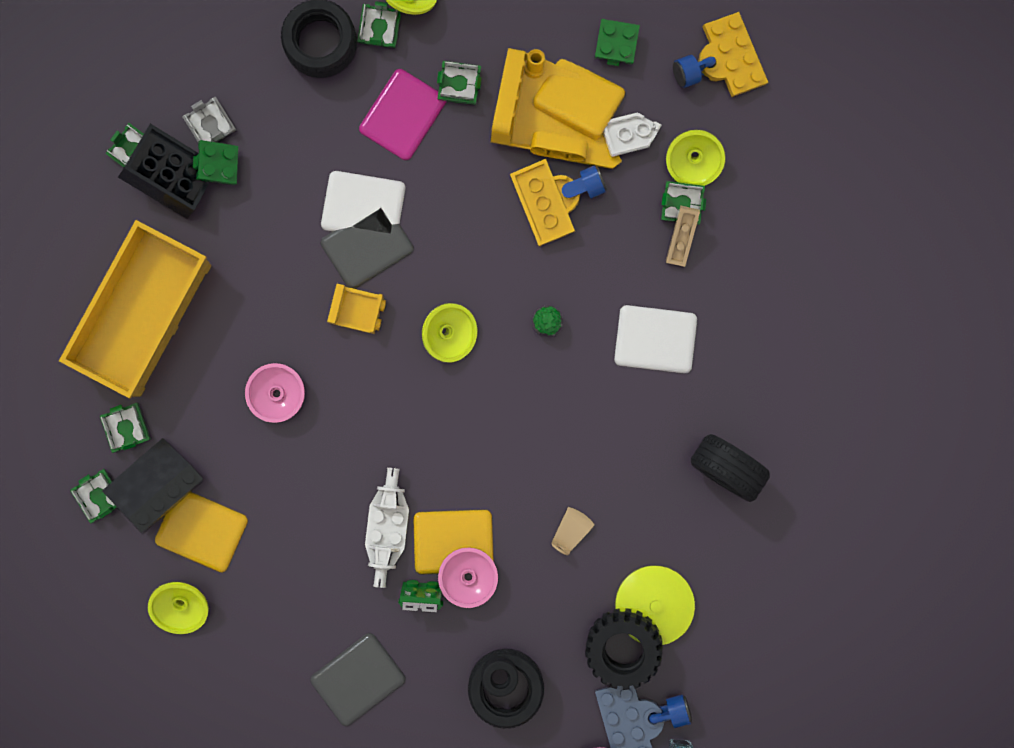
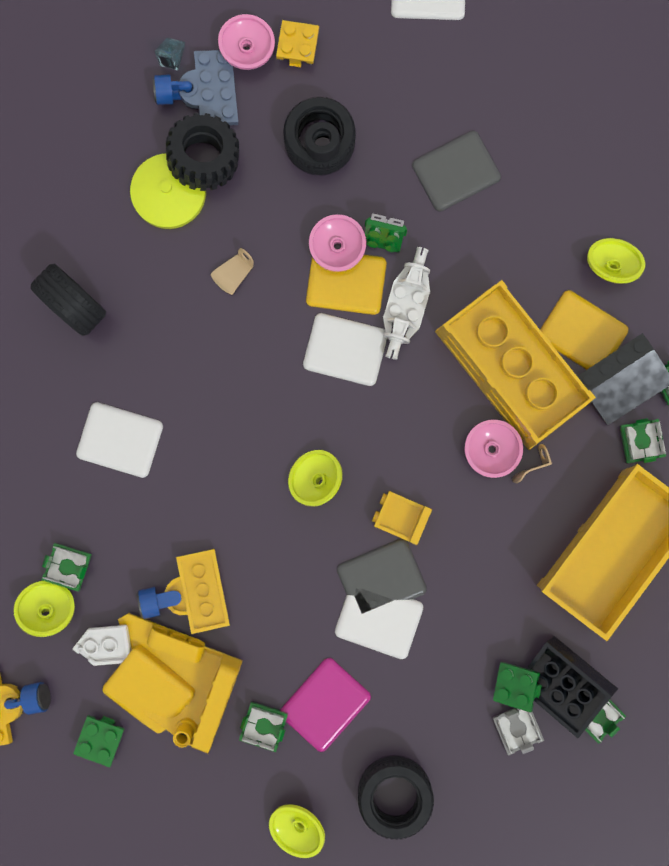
camera: 160 degrees left, 0 degrees up
(244, 370) = (519, 476): none -> tan piece
(267, 481) = (514, 364): none -> yellow piece
(379, 25) = (333, 800): piece -> none
(442, 471) = (345, 349): none -> white piece
(547, 320) = (218, 473): green piece -> none
(682, 236) = (71, 533): tan plate -> none

